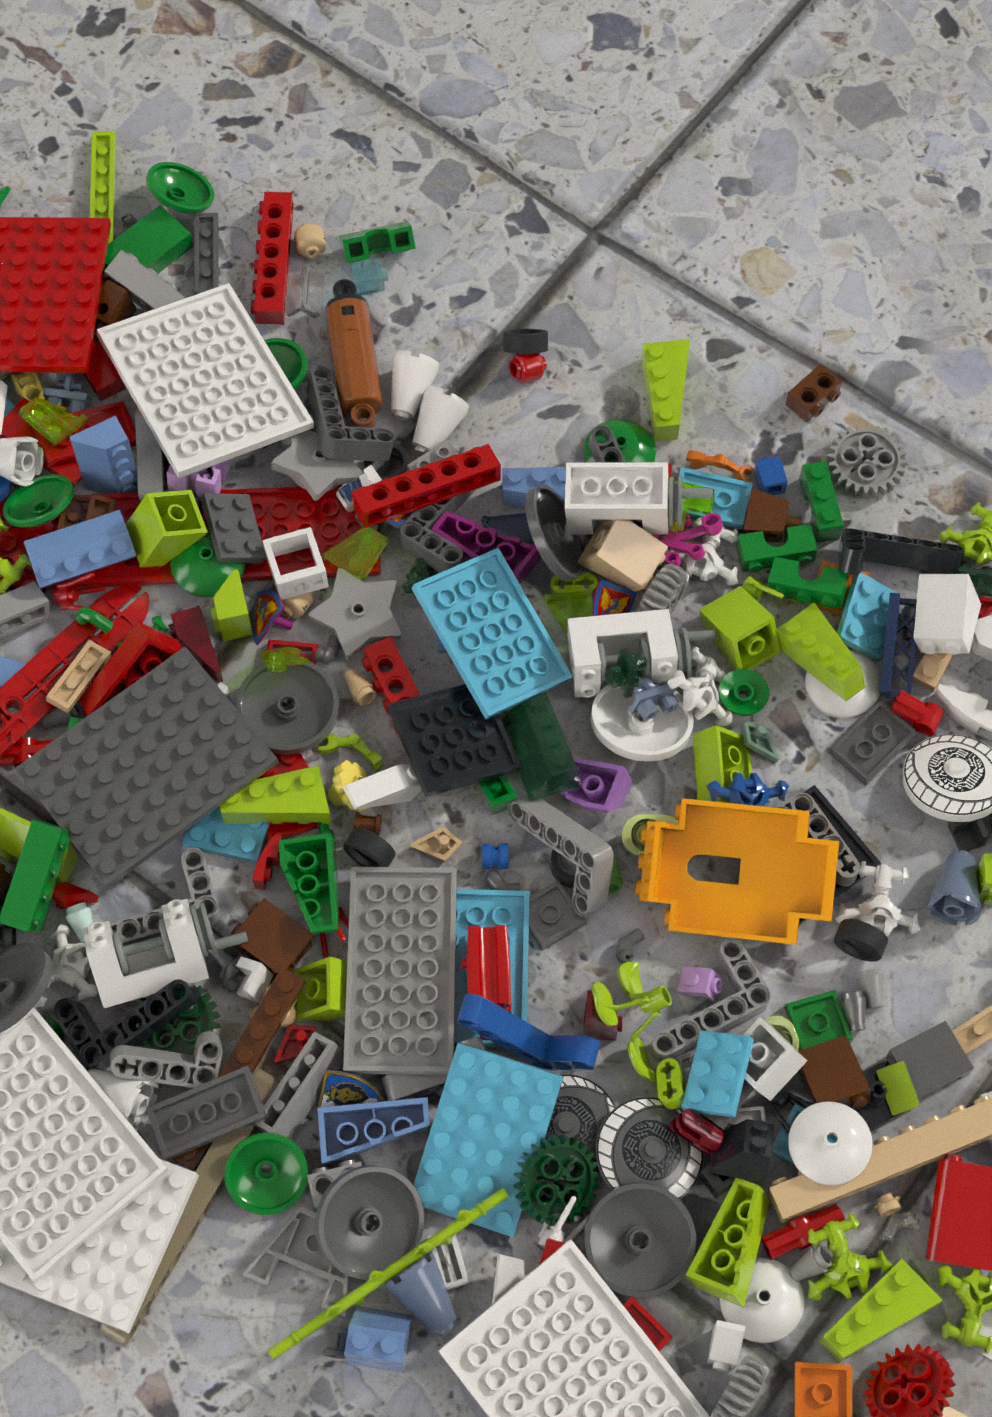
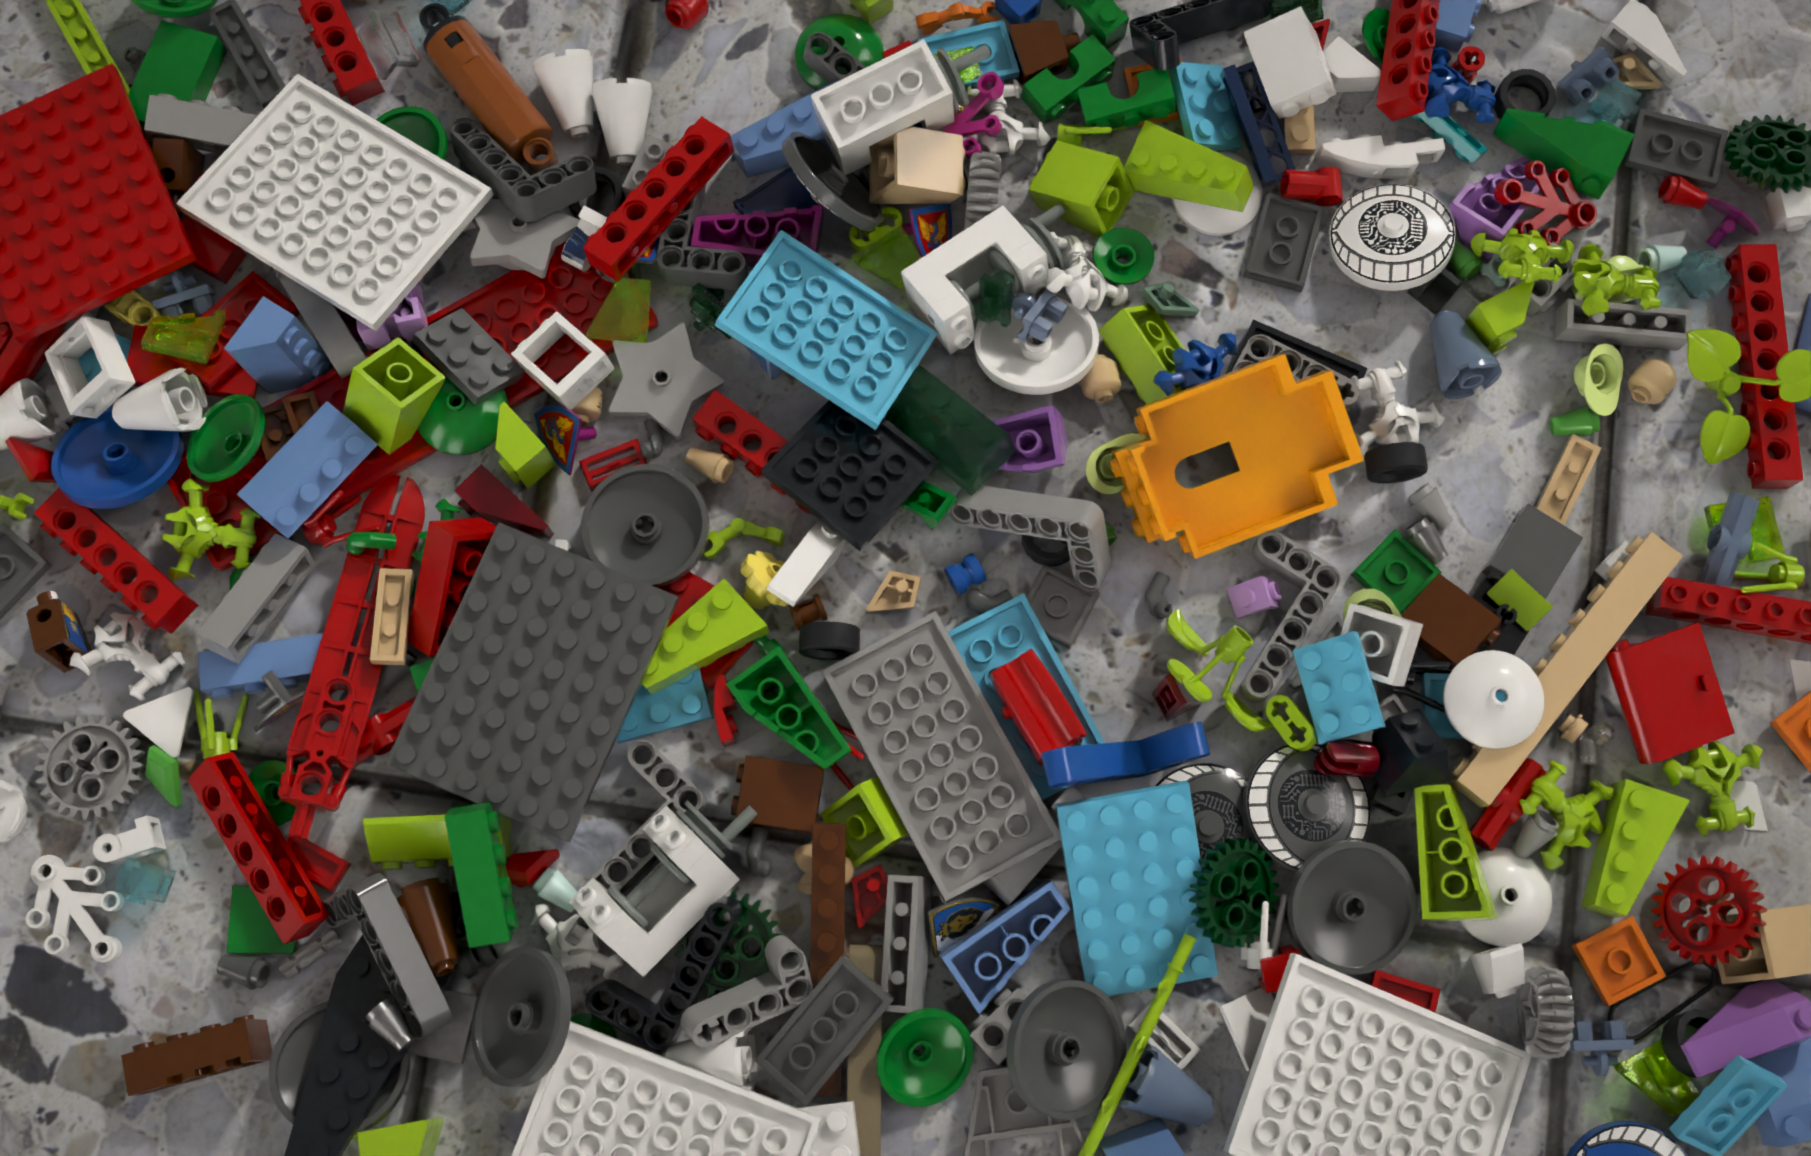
camera: 30 degrees left, 10 degrees up
(255, 981) = (786, 851): white panel -> none
(278, 660) = (611, 473): clear neon green plate -> none
(675, 771) = (1102, 380): none -> tan head

